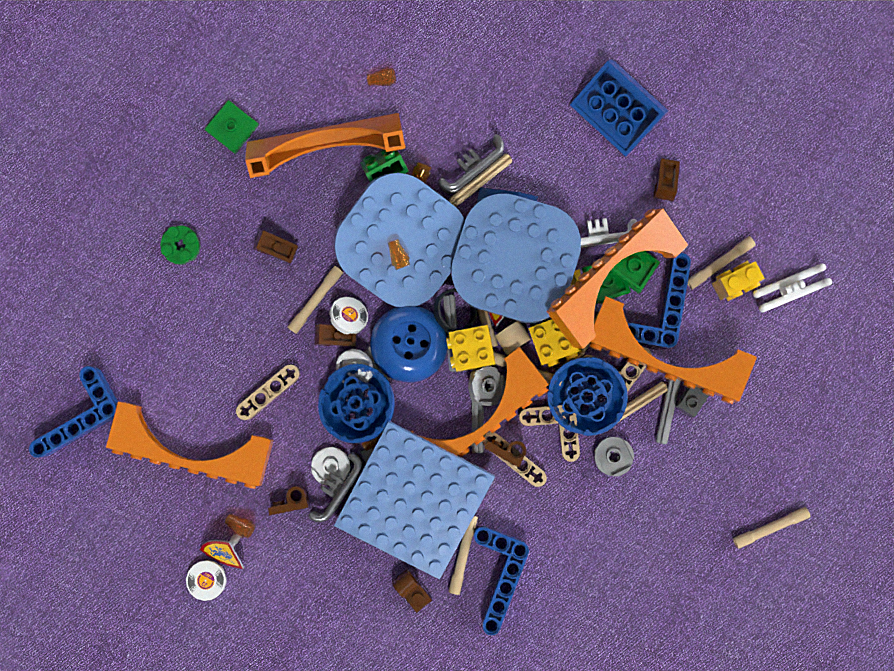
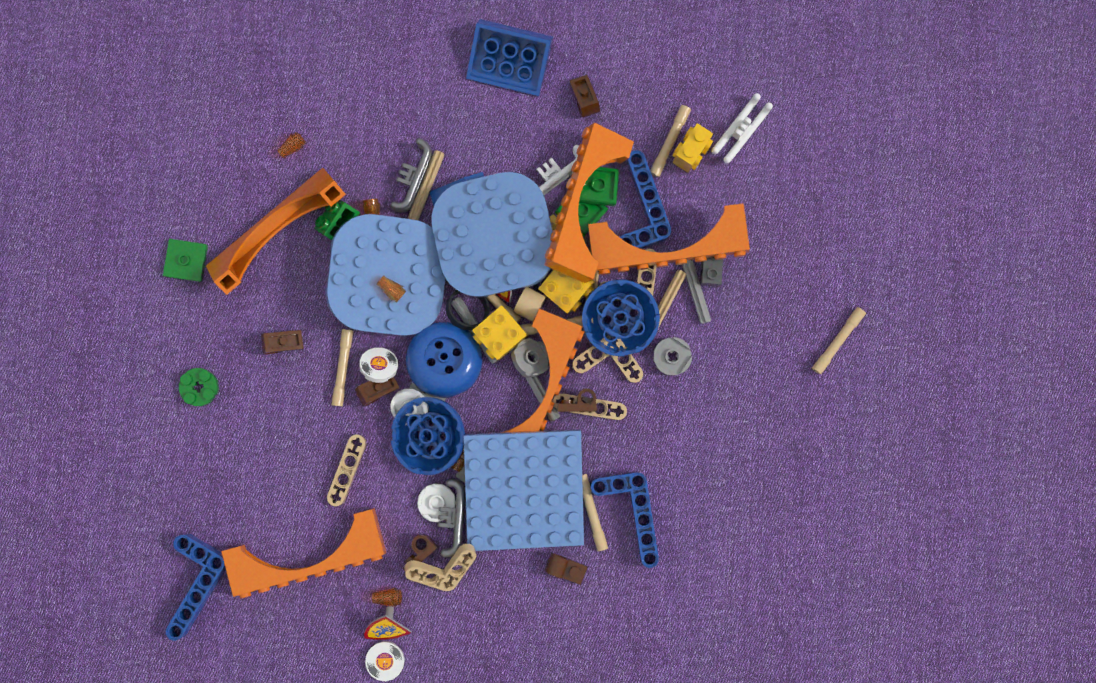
camera: 30 degrees left, 0 degrees up
(296, 537) = (442, 575): none -> tan beam

